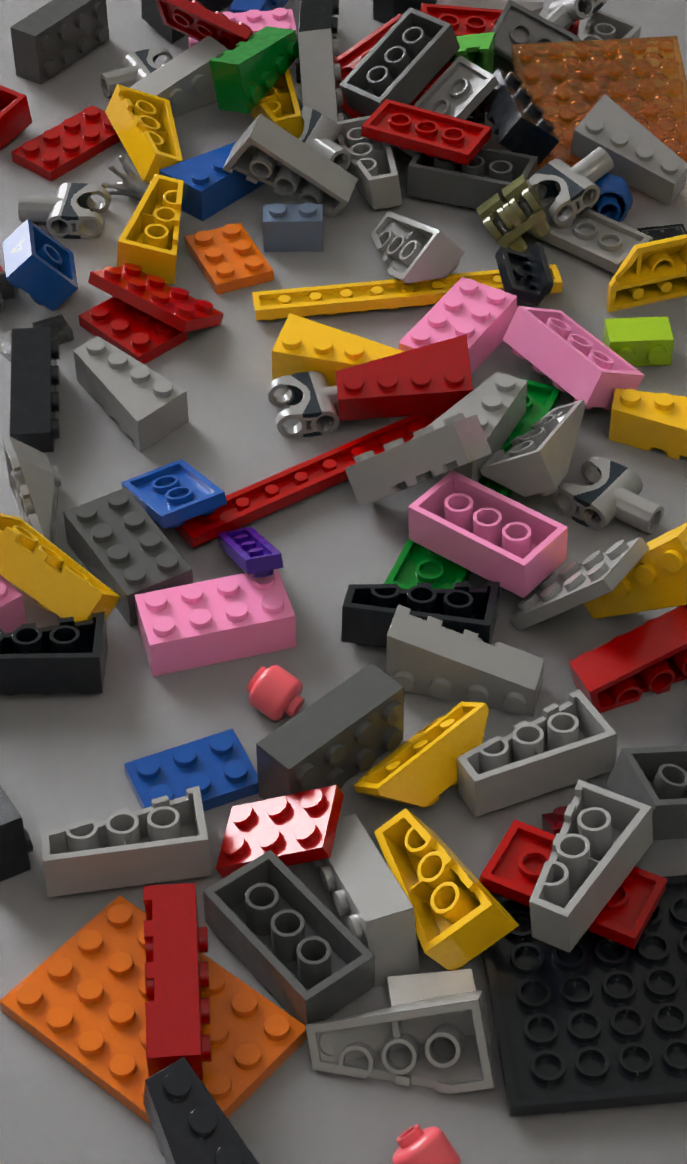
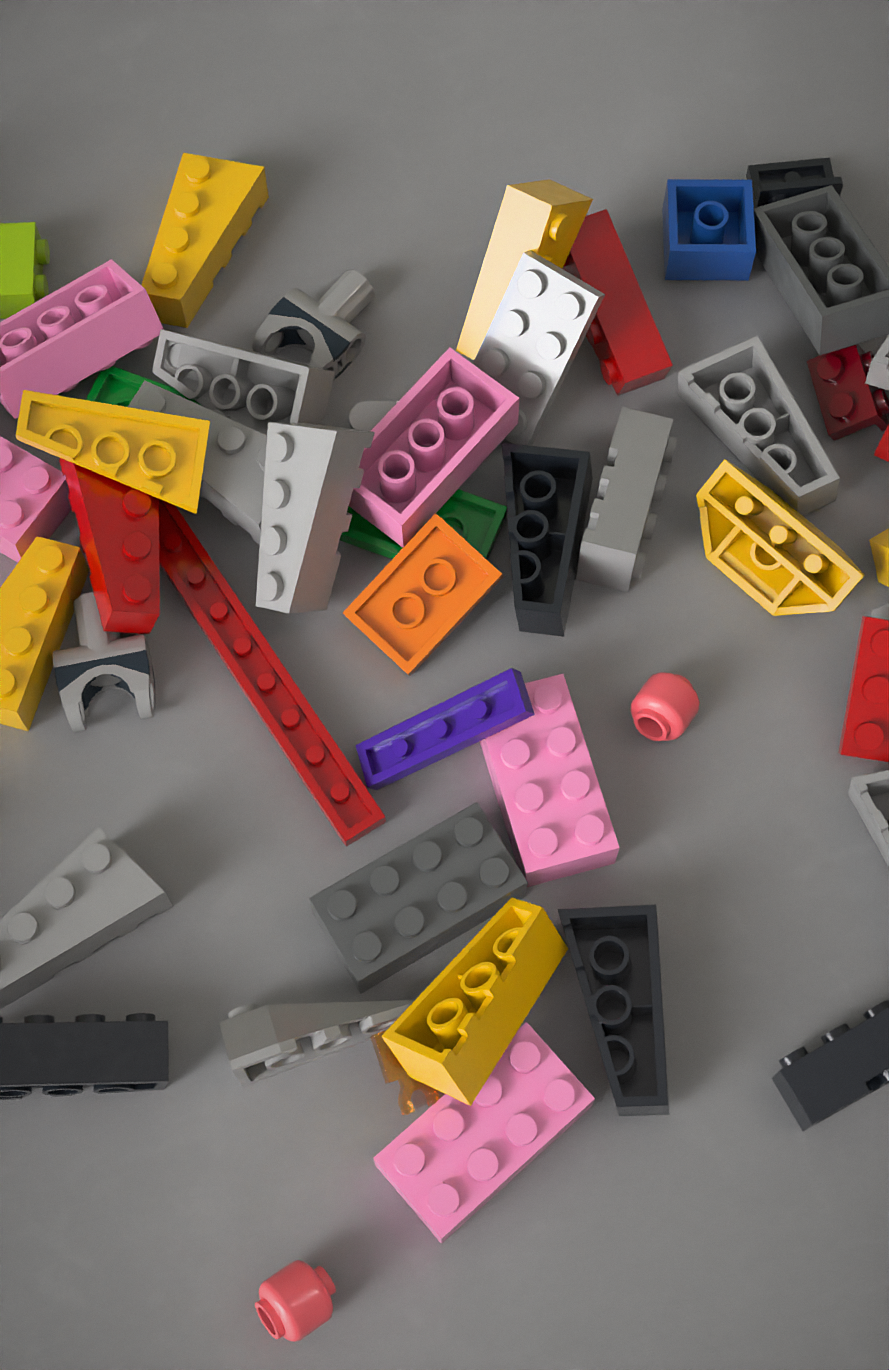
camera: 90 degrees left, 25 degrees up
(175, 494) = (302, 841): blue plate -> none
(212, 763) = (791, 804): blue plate -> none
(333, 736) = (765, 633): dark grey brick -> none
(369, 549) = (423, 594): none -> orange plate
(459, 357) = (127, 444): none -> yellow wing

